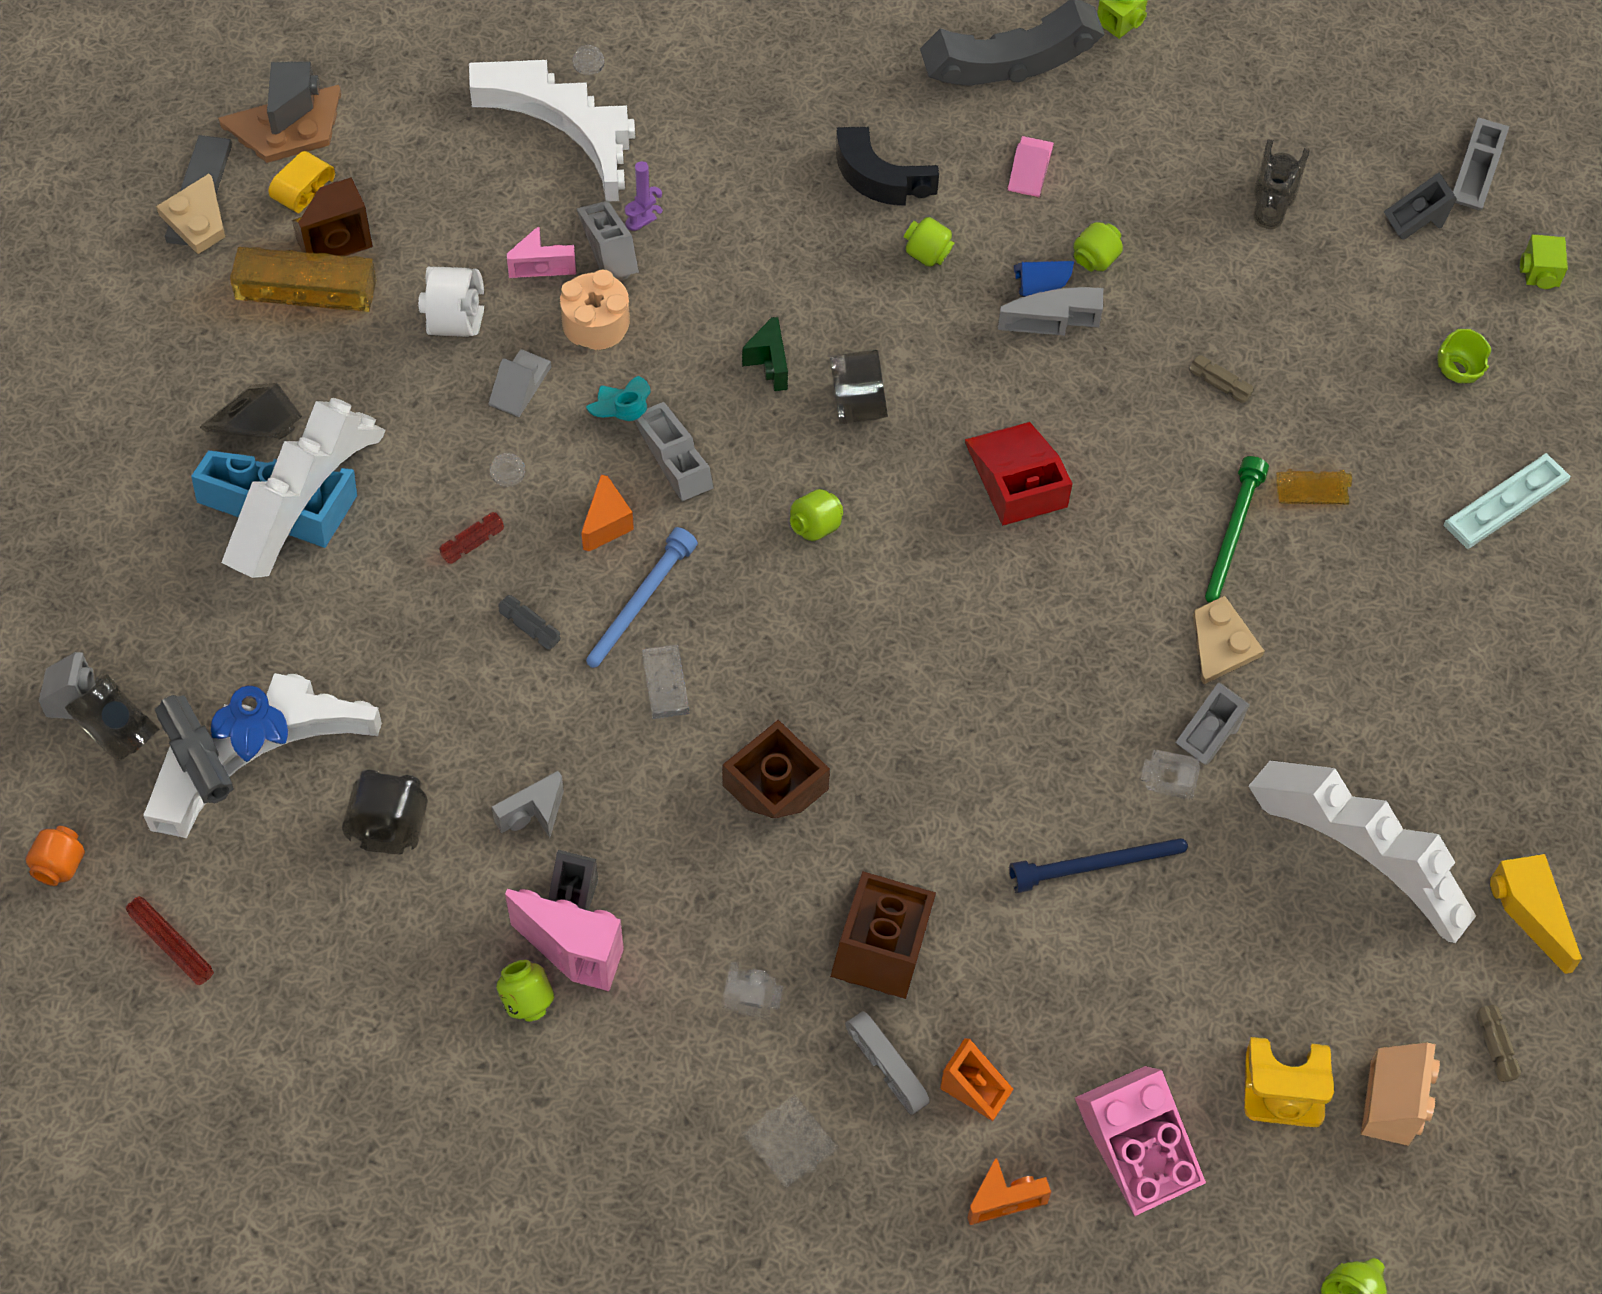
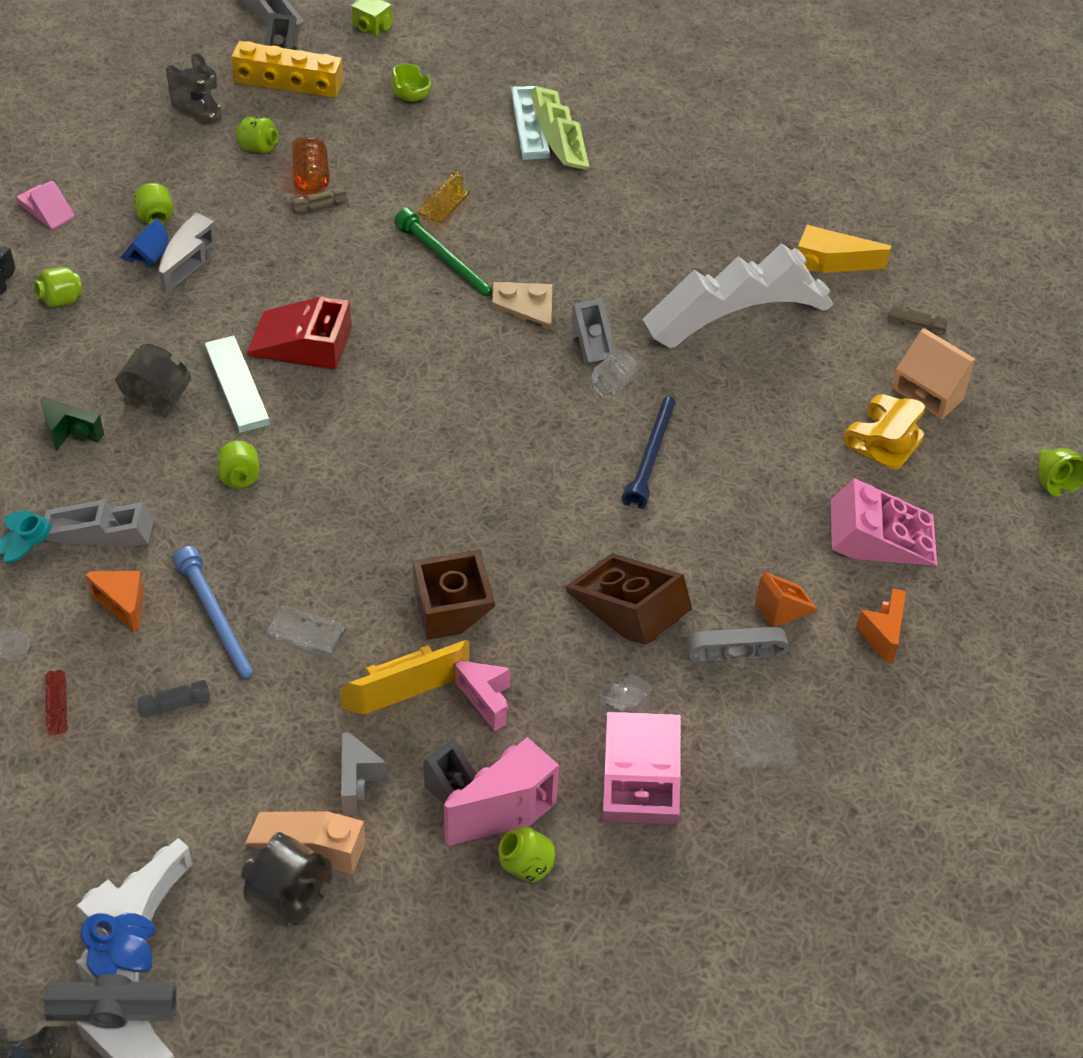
camera: 60 degrees left, 10 degrees down
(446, 810) = (327, 833): none -> light nougat slope
(661, 797) = (403, 678): none -> yellow piece
(672, 1040) = (642, 768): none -> bright pink slope
(688, 857) = (483, 687): none -> bright pink slope
(921, 455) = (237, 384): none -> light aqua tile
(1258, 341) = (310, 165): none -> clear orange piece
(1265, 269) = (257, 135): none -> lime head
(1385, 239) = (282, 68): none -> yellow brick
(1511, 533) = (558, 128): none -> yellowish green slope

